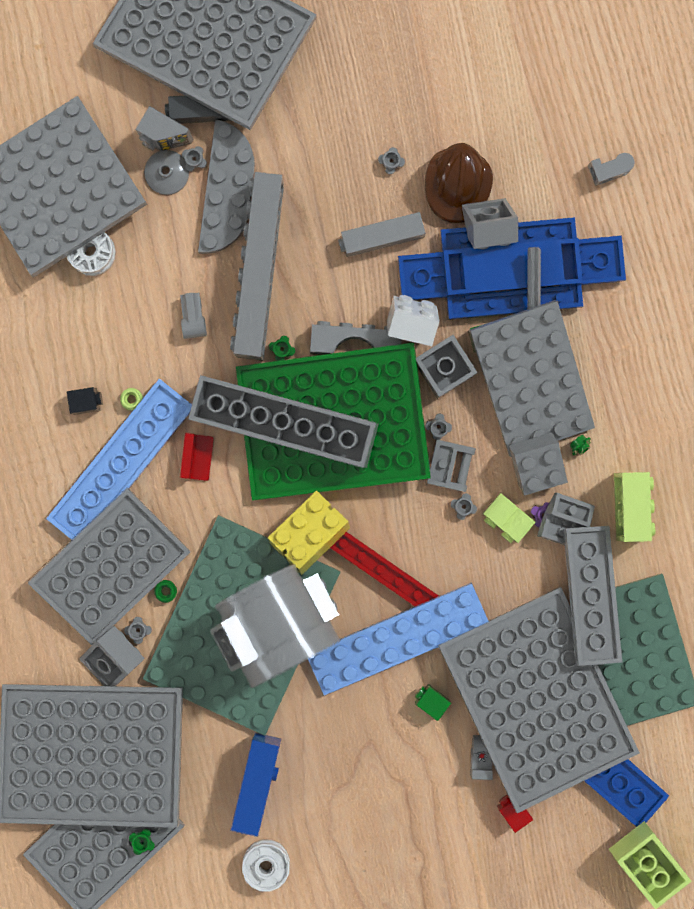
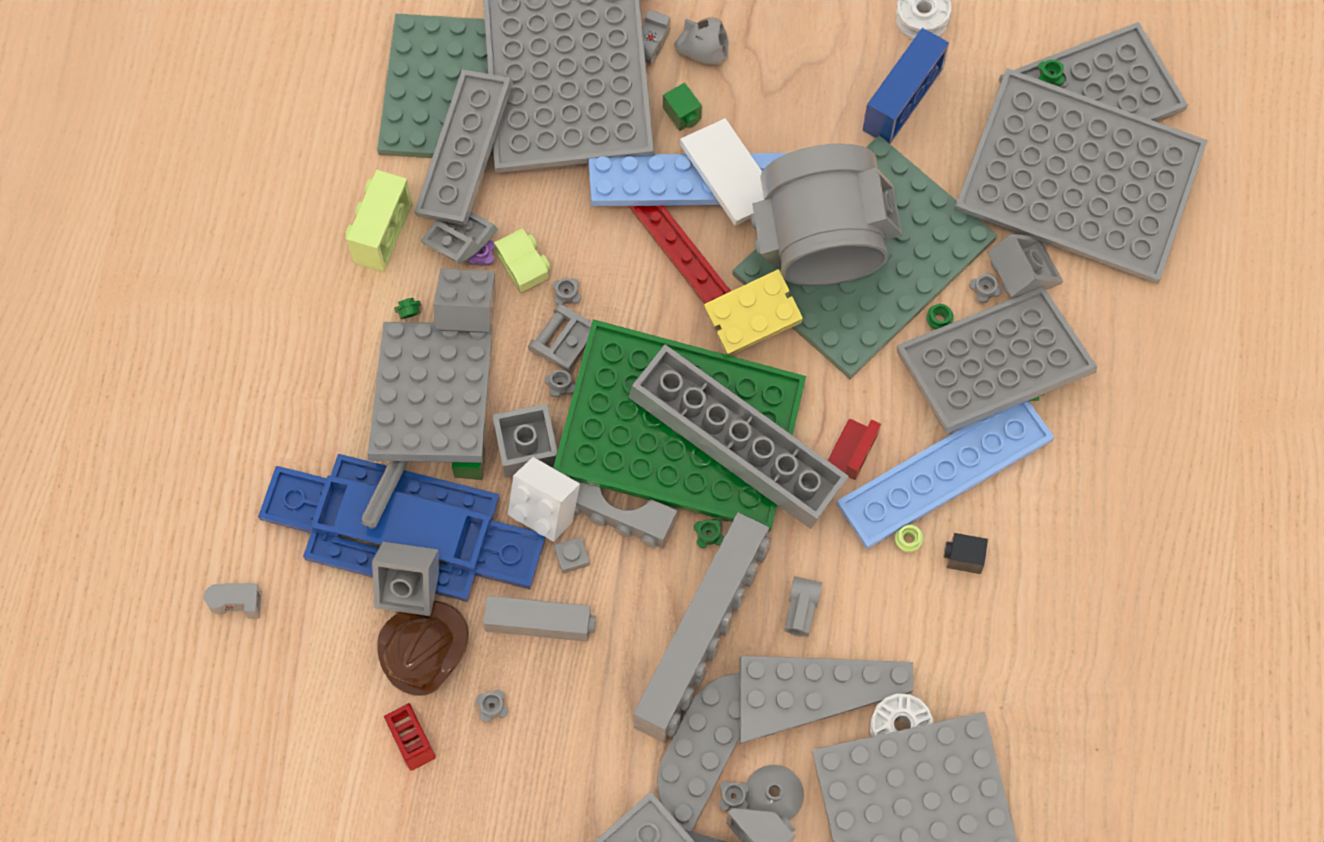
camera: 160 degrees left, 20 degrees down
(172, 248) = (800, 691): none -> light grey wing
(373, 652) = (725, 168): none -> white tile
(377, 295) = (571, 555): none -> light grey plate
(437, 769) = (704, 41): none -> light grey piece
(447, 111) = (418, 752): none -> red slope

